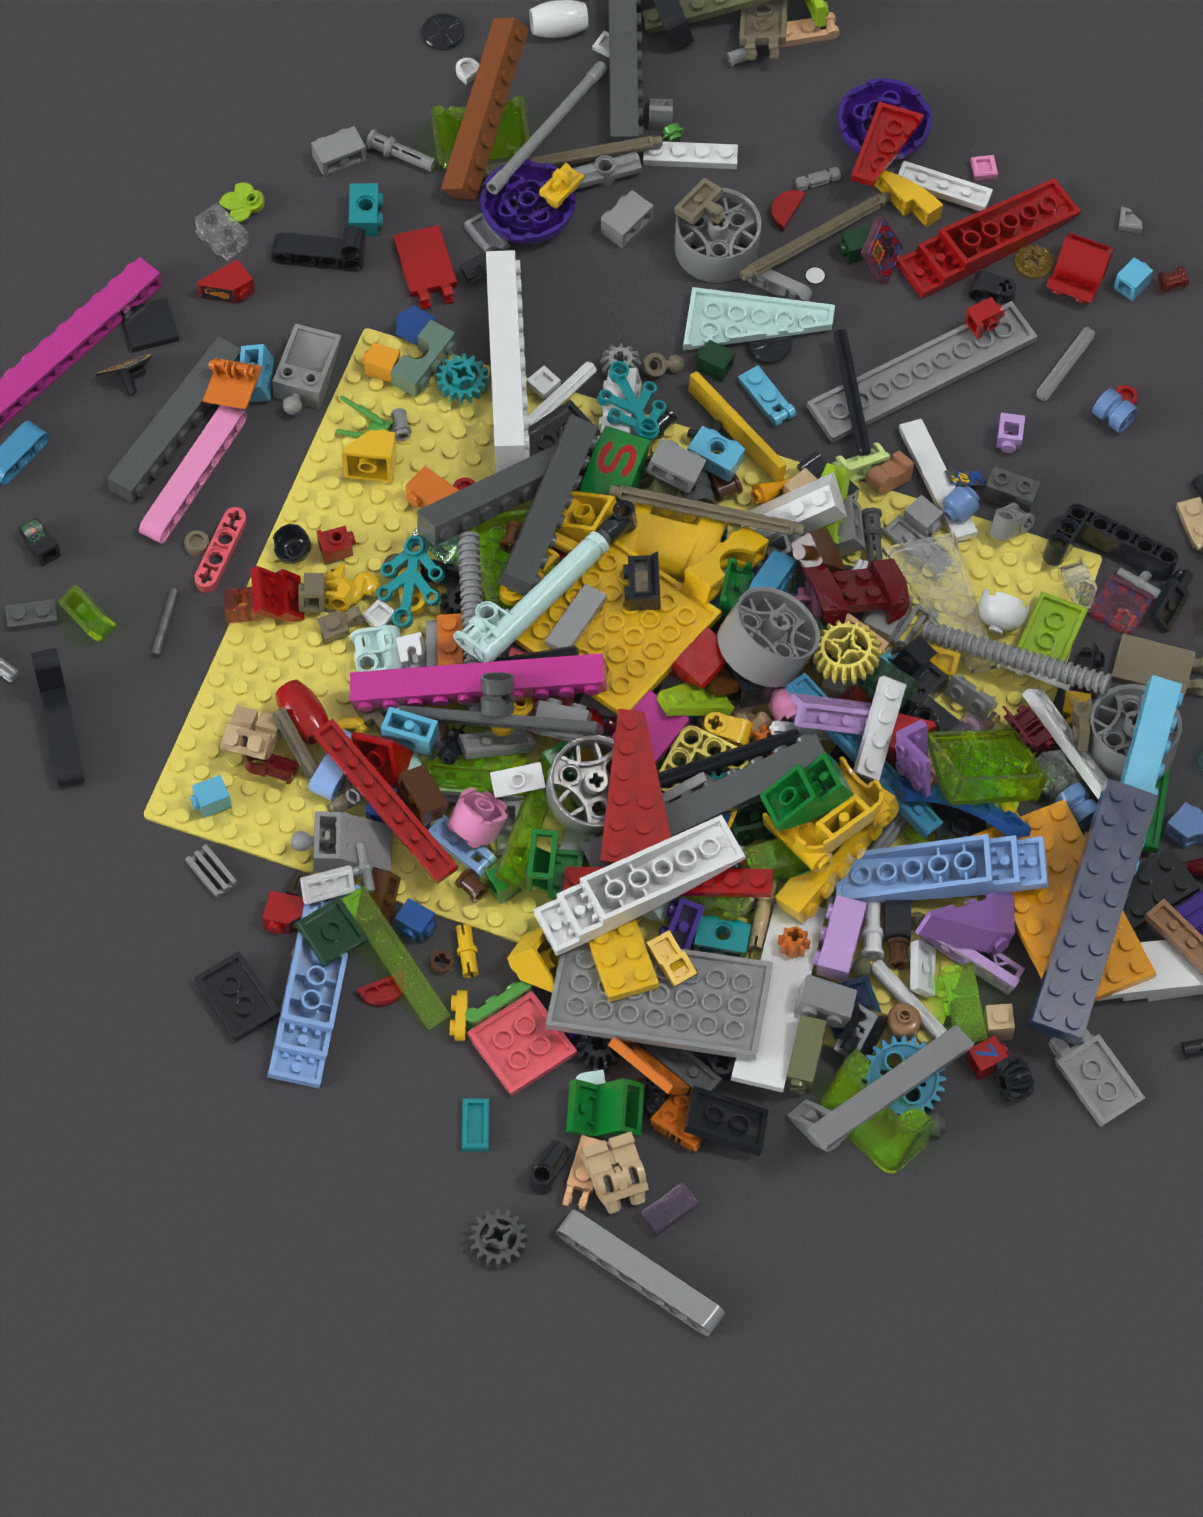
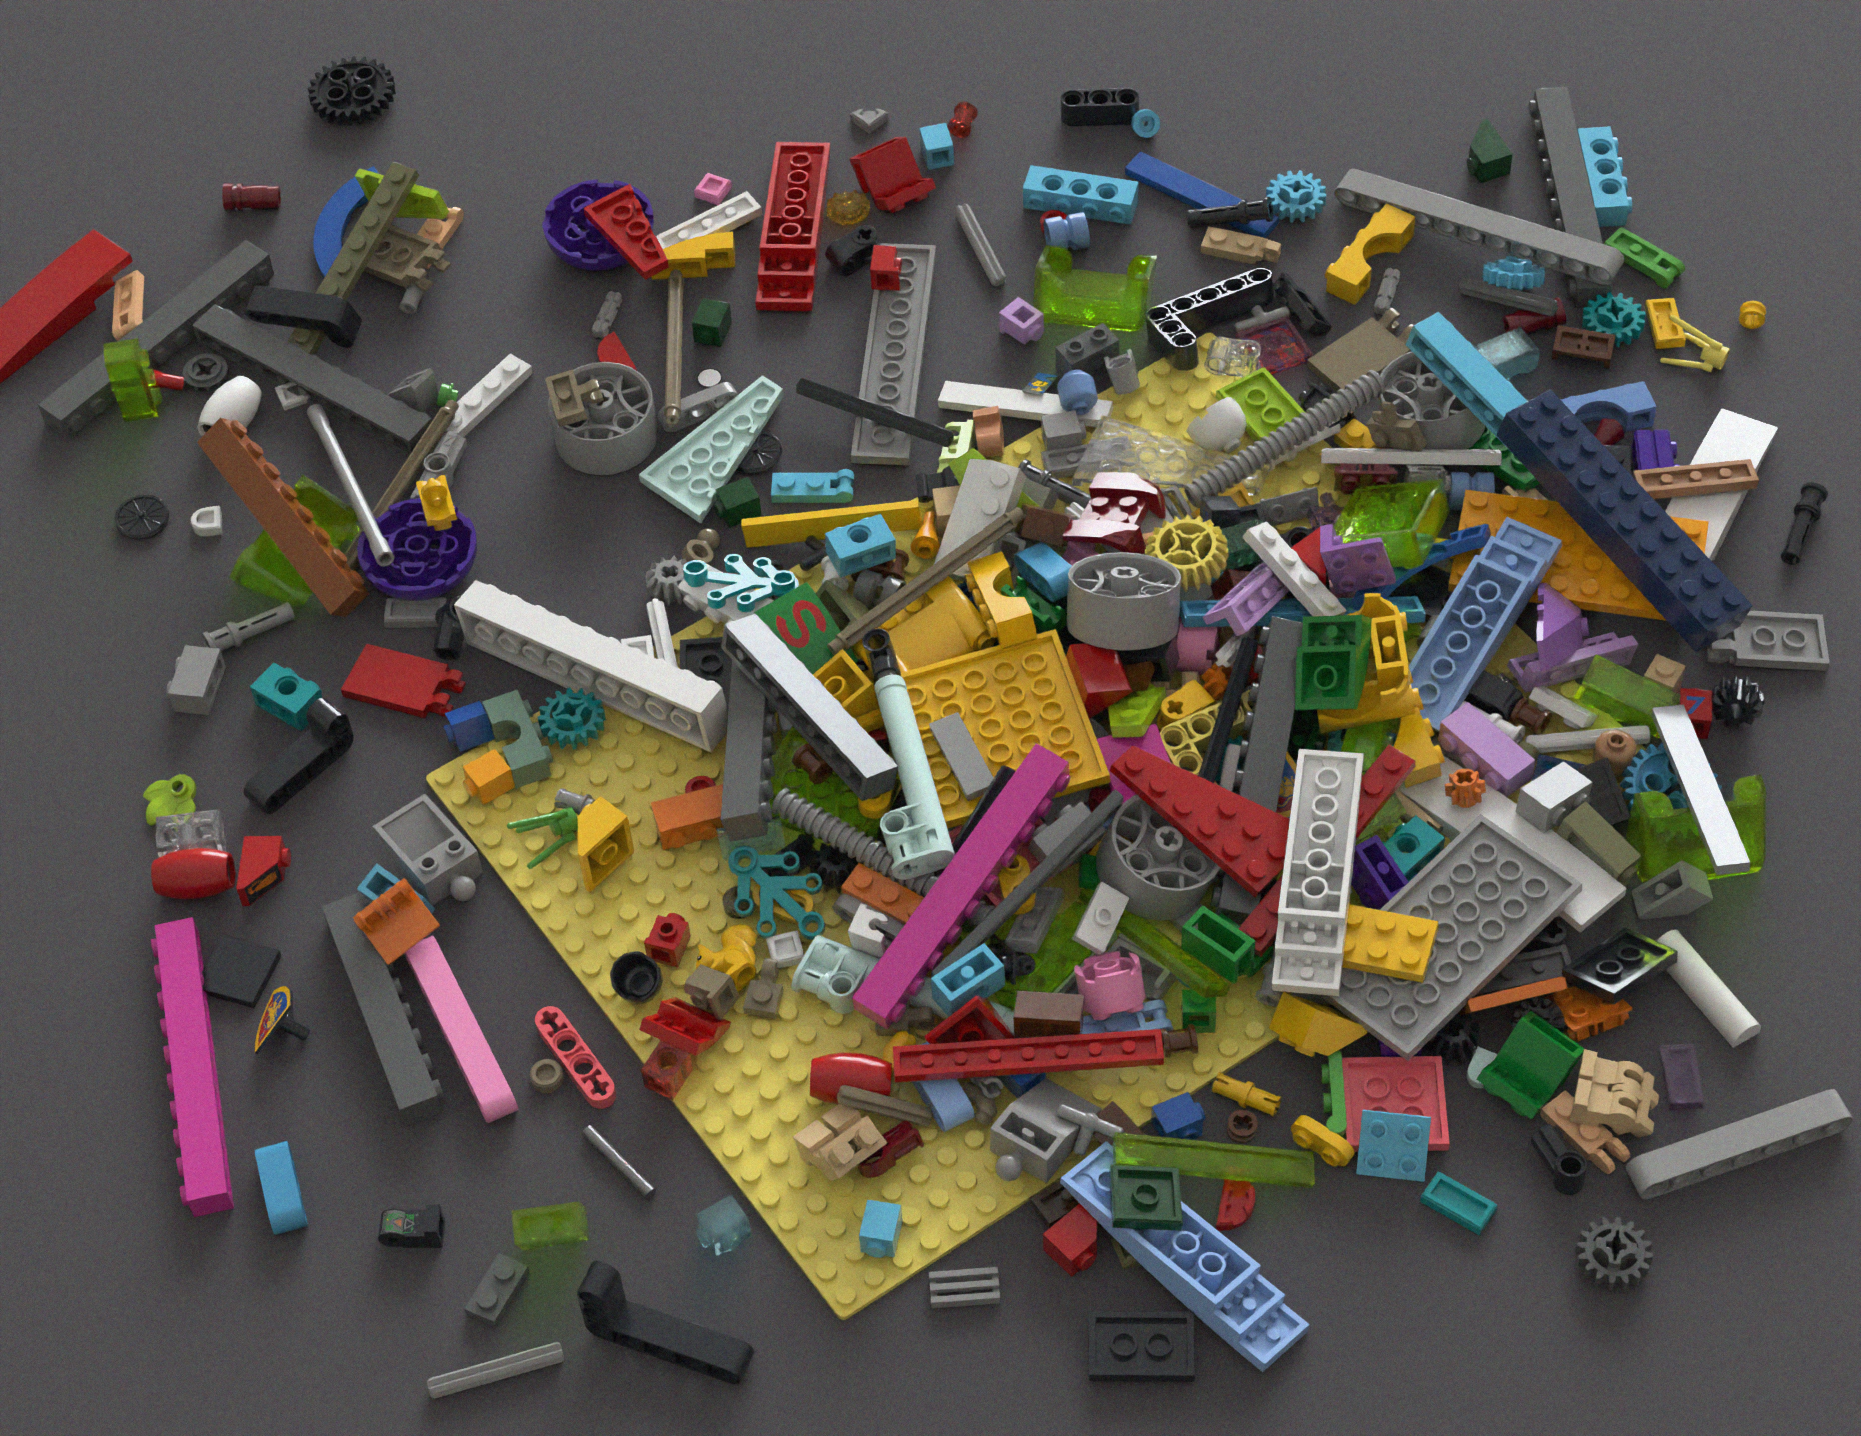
camera: 50 degrees left, 10 degrees down
(157, 708) = (723, 1226): none -> clear light blue brick
(193, 250) = (193, 873): none -> red piece
(327, 884) = (1090, 1165): white plate -> none
(485, 1058) = (1393, 1145): none -> medium azure hinge
(497, 696) = (1007, 866): dark grey wheel -> none
(626, 218) = (510, 484): light grey brick -> none
(643, 582) = (972, 670): black window -> none
(670, 958) = (1417, 899): yellow slope -> none
(676, 465) = (851, 580): light grey brick -> none
(756, 1188) = (1709, 992): none -> white brick
(881, 250) = (738, 304): tile -> none
(1071, 457) = (1092, 296): none -> clear neon green windscreen
(1150, 365) = (1080, 192): none -> medium azure brick

